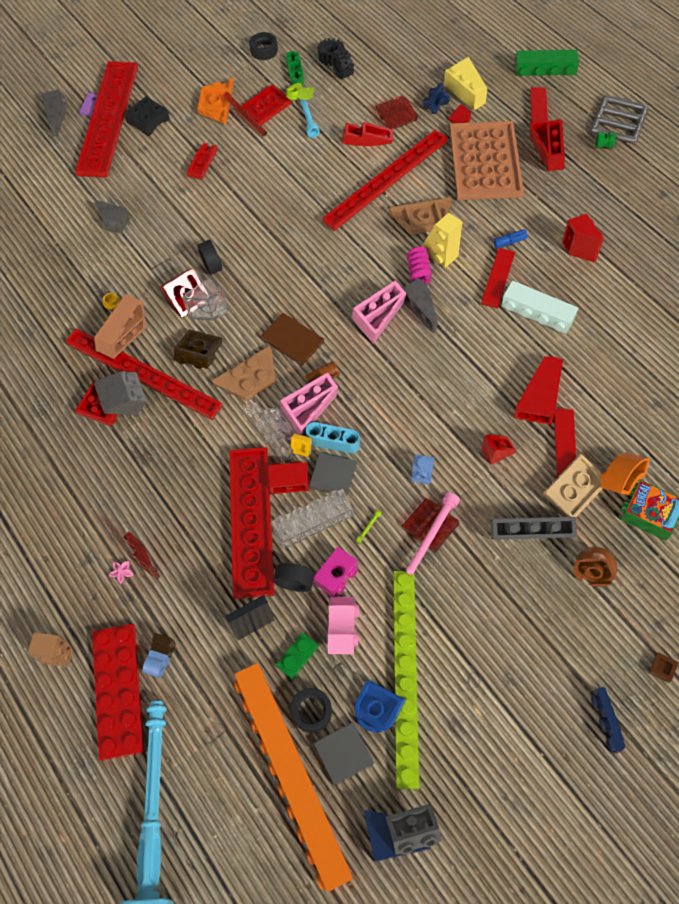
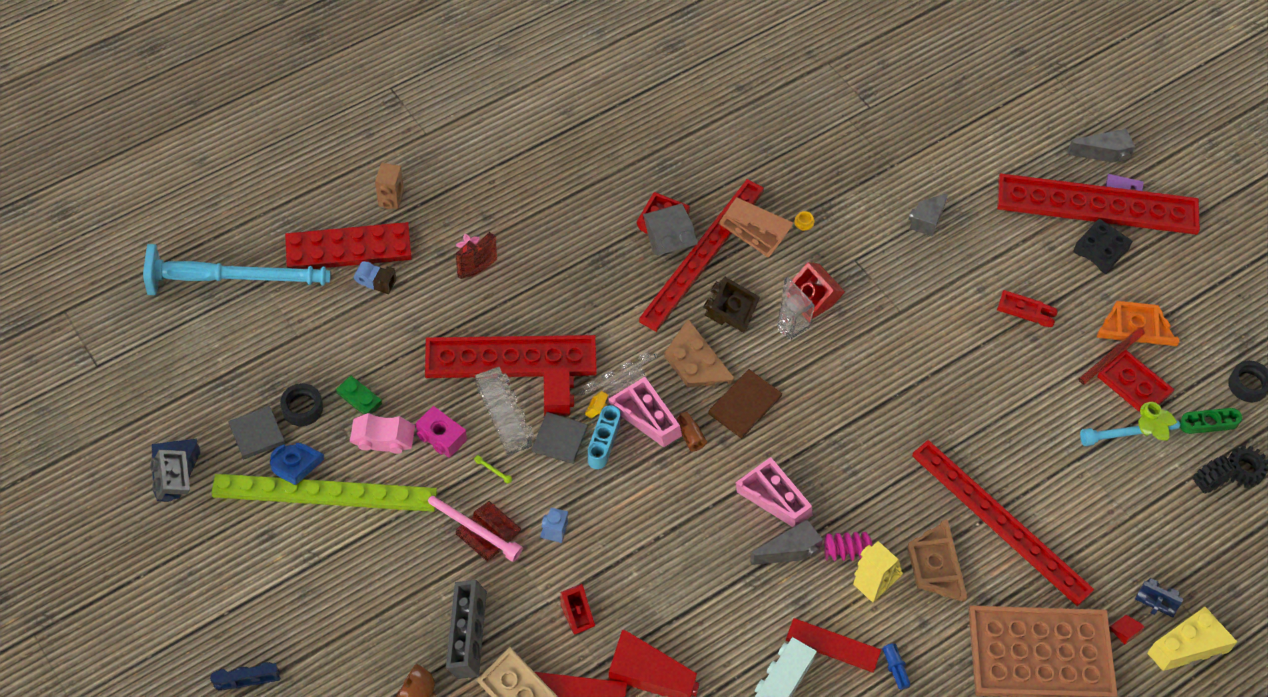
camera: 85 degrees right, 5 degrees down
(209, 257) = (860, 313): black tyre -> none
(250, 617) = (393, 344): black tile -> none
(293, 577) = (436, 388): black tyre -> none
(293, 779) = (243, 385): orange brick -> none
(366, 135) = (1081, 503): red slope -> none
(396, 112) = (1129, 544): clear red slope -> none

